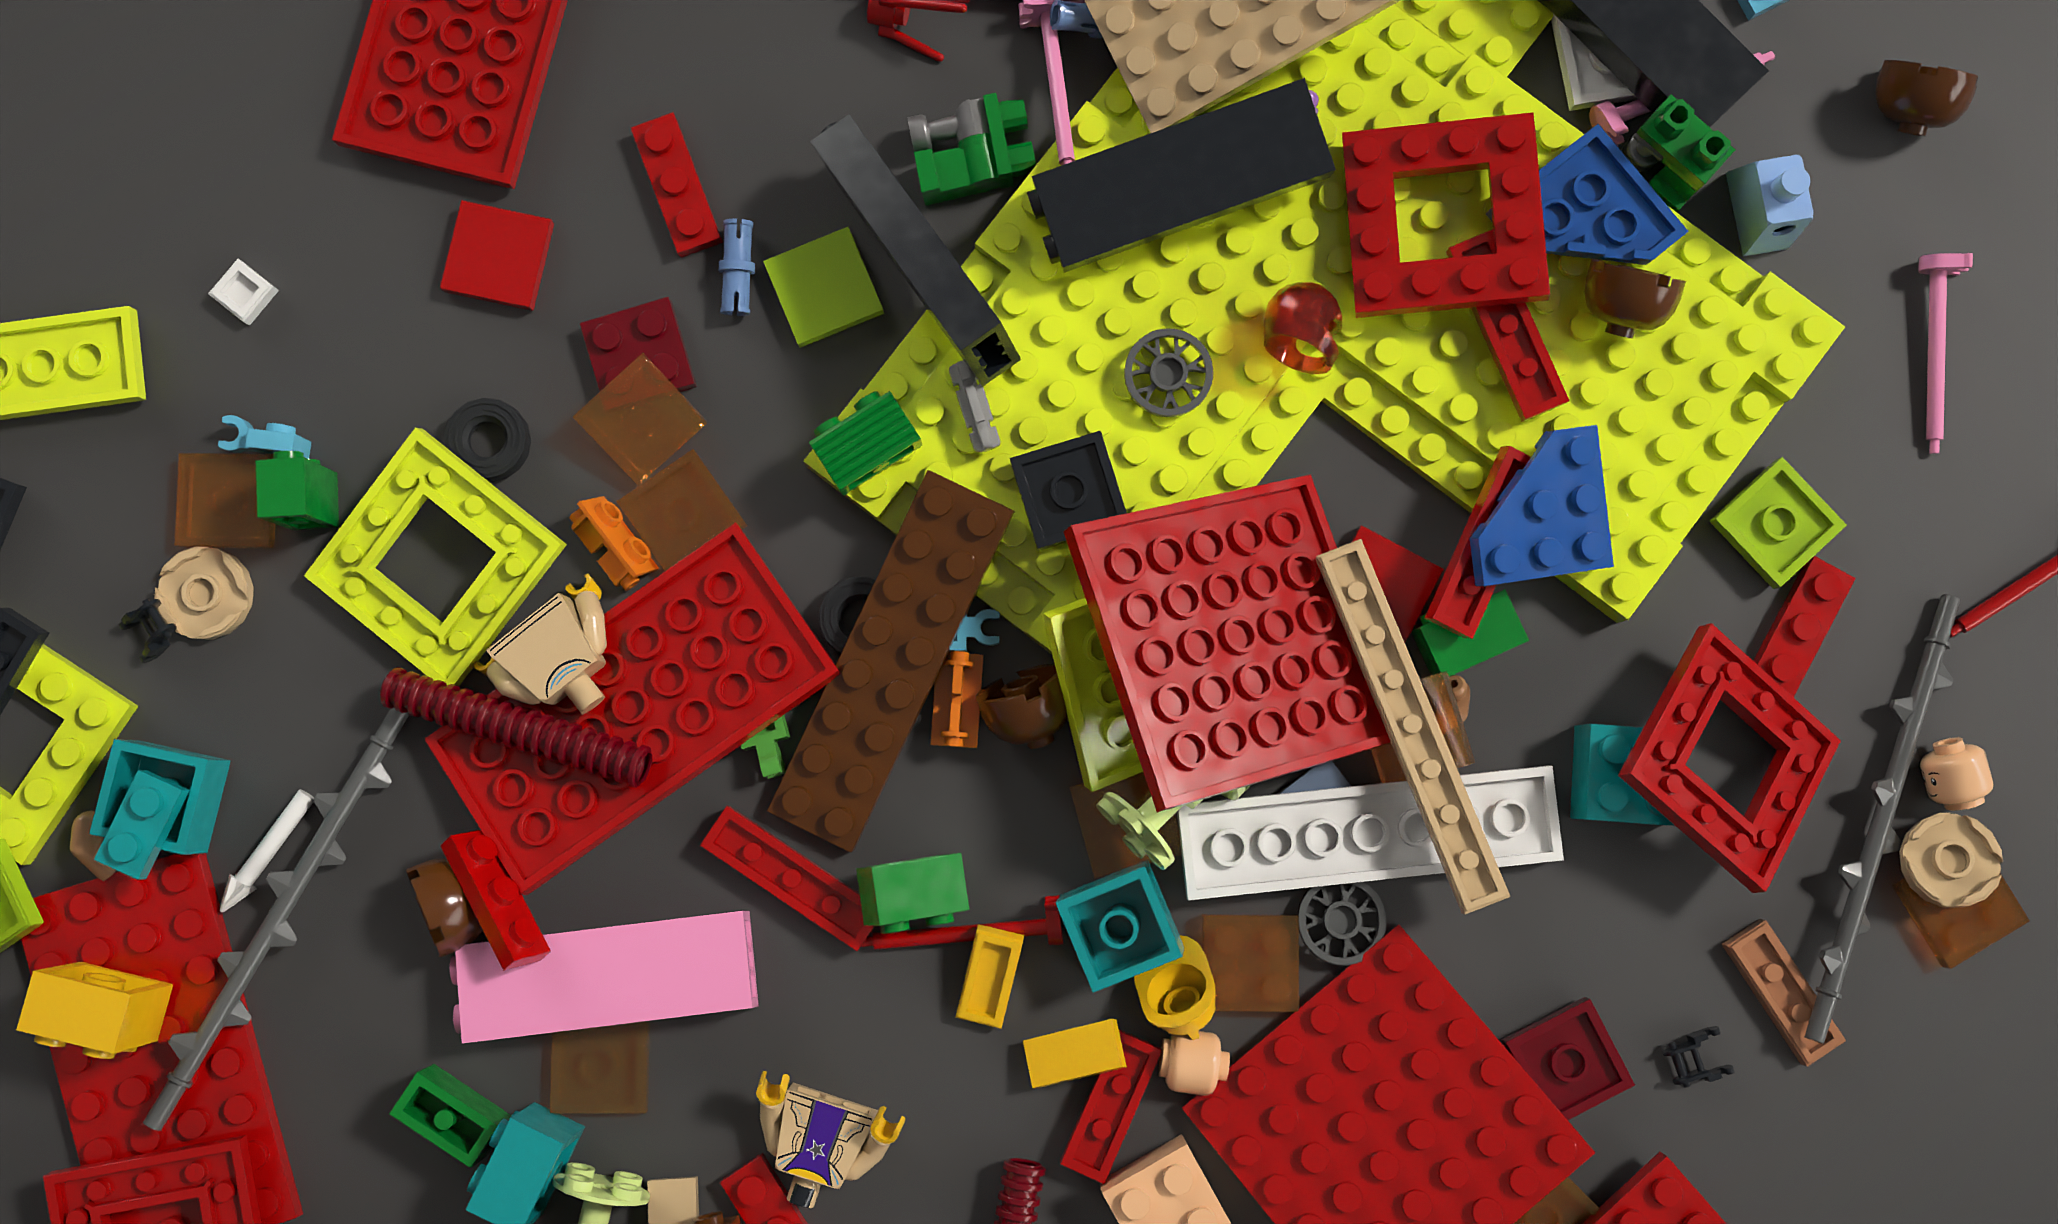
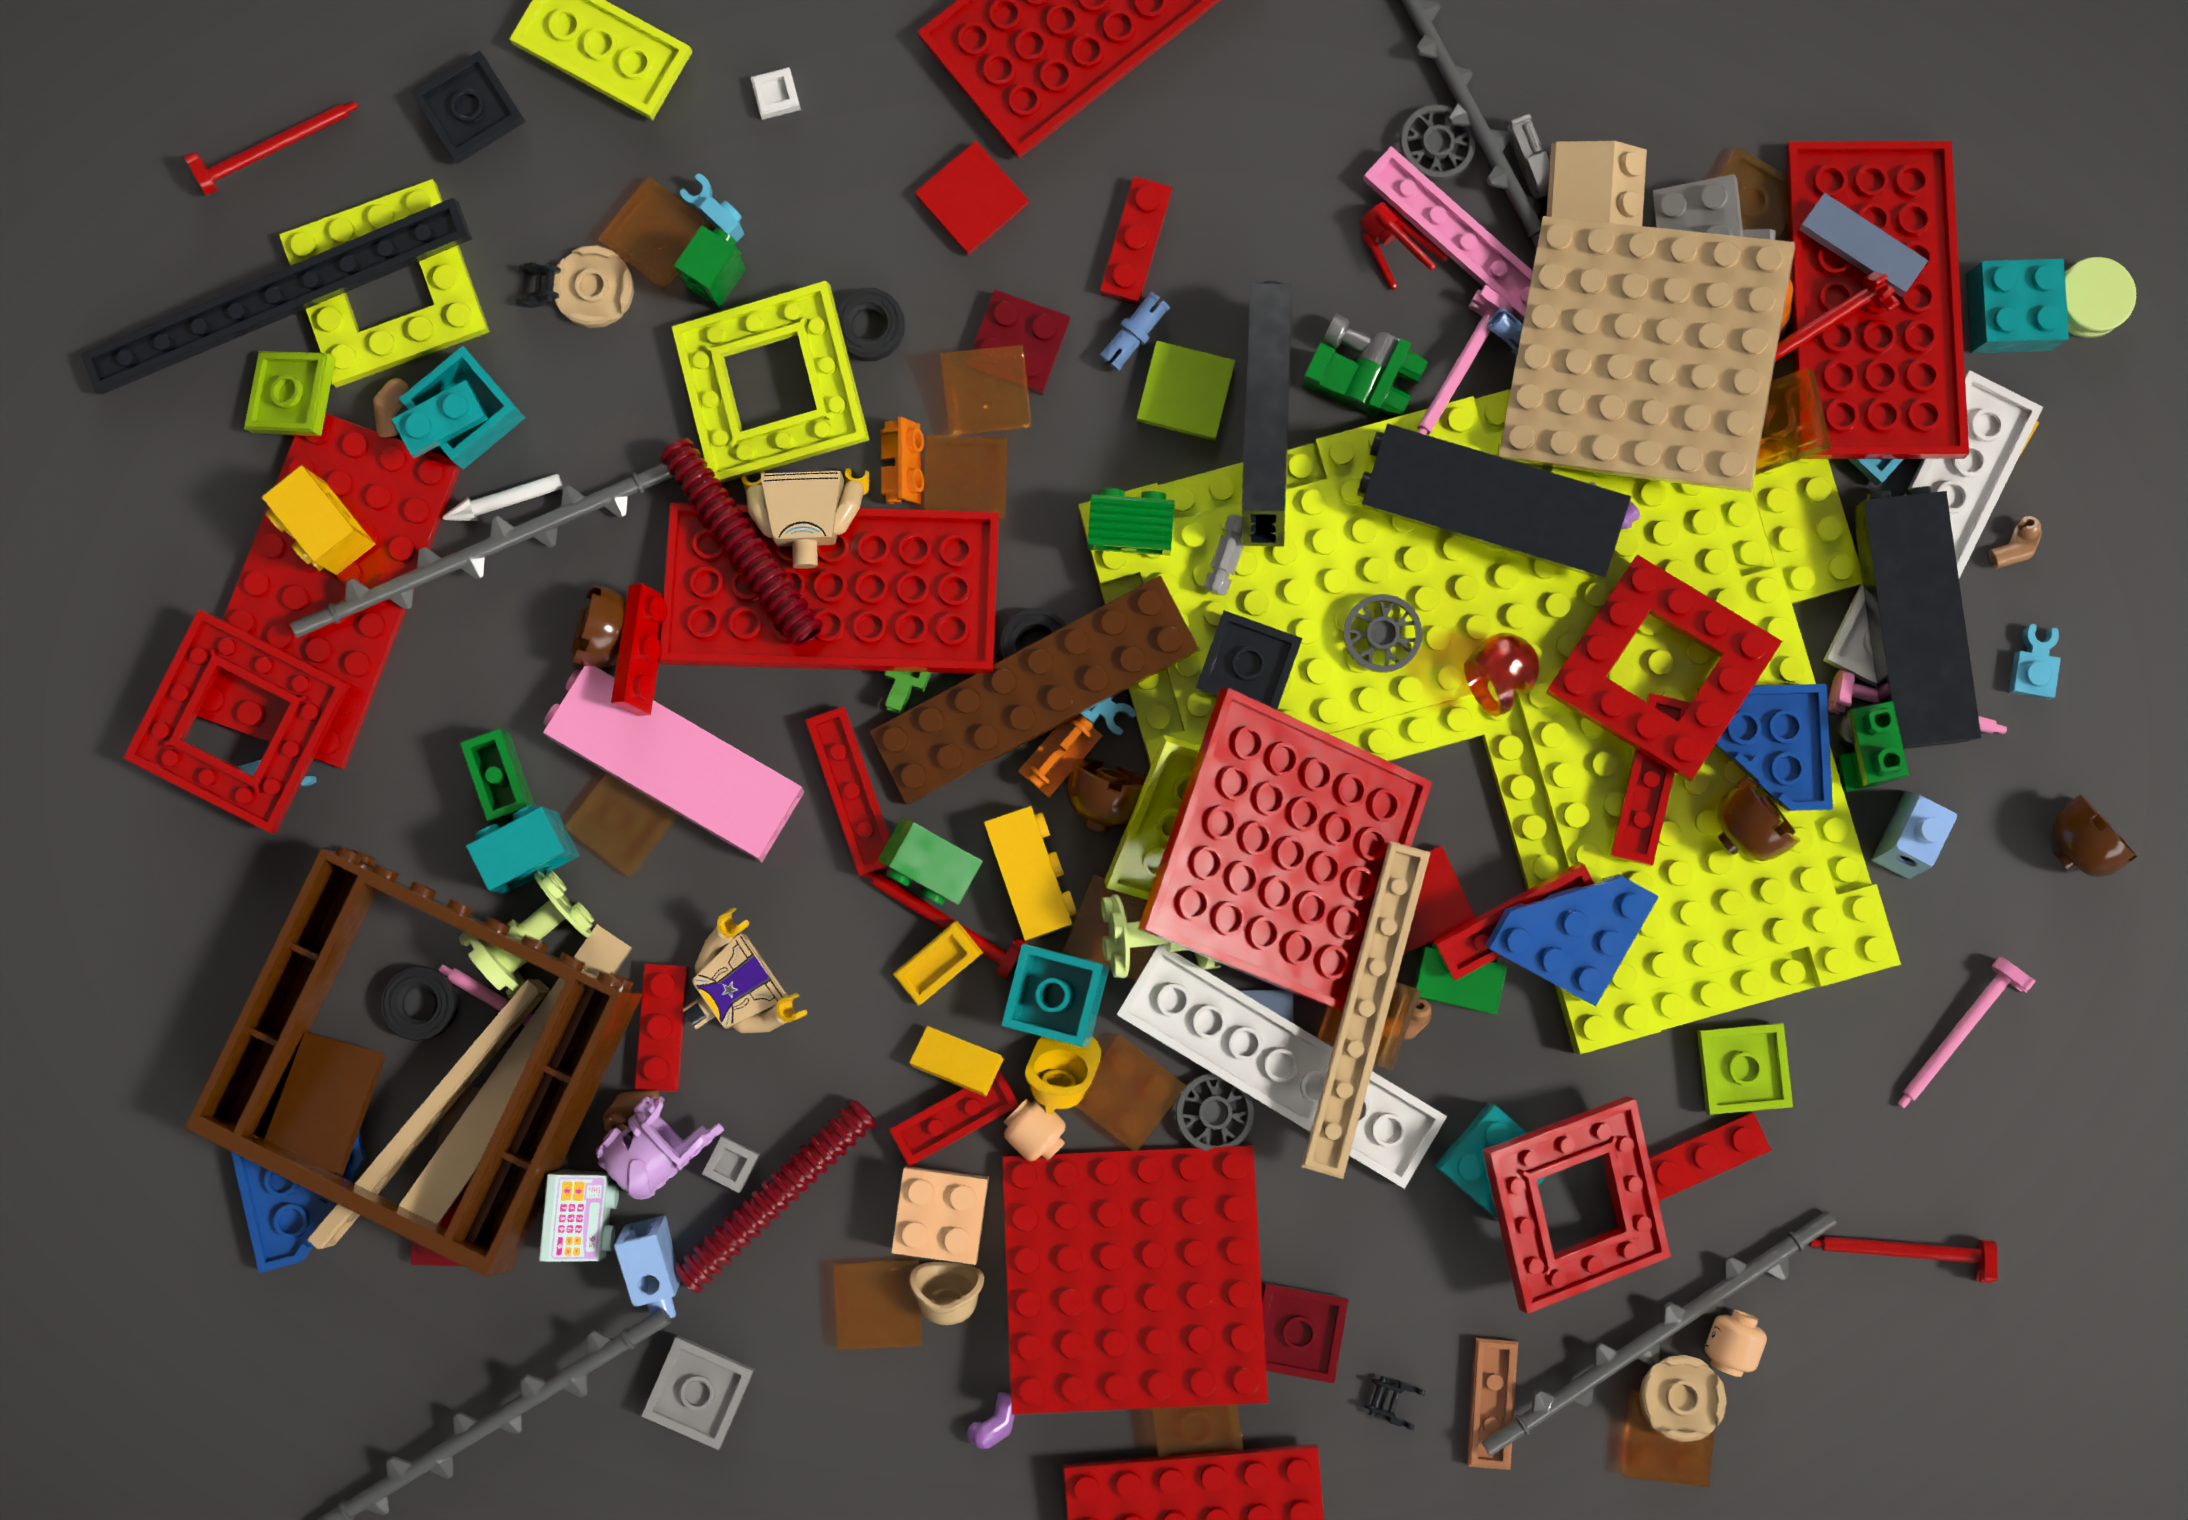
camera: 40 degrees right, 0 degrees up
(1012, 830) = (1030, 872): none -> yellow brick

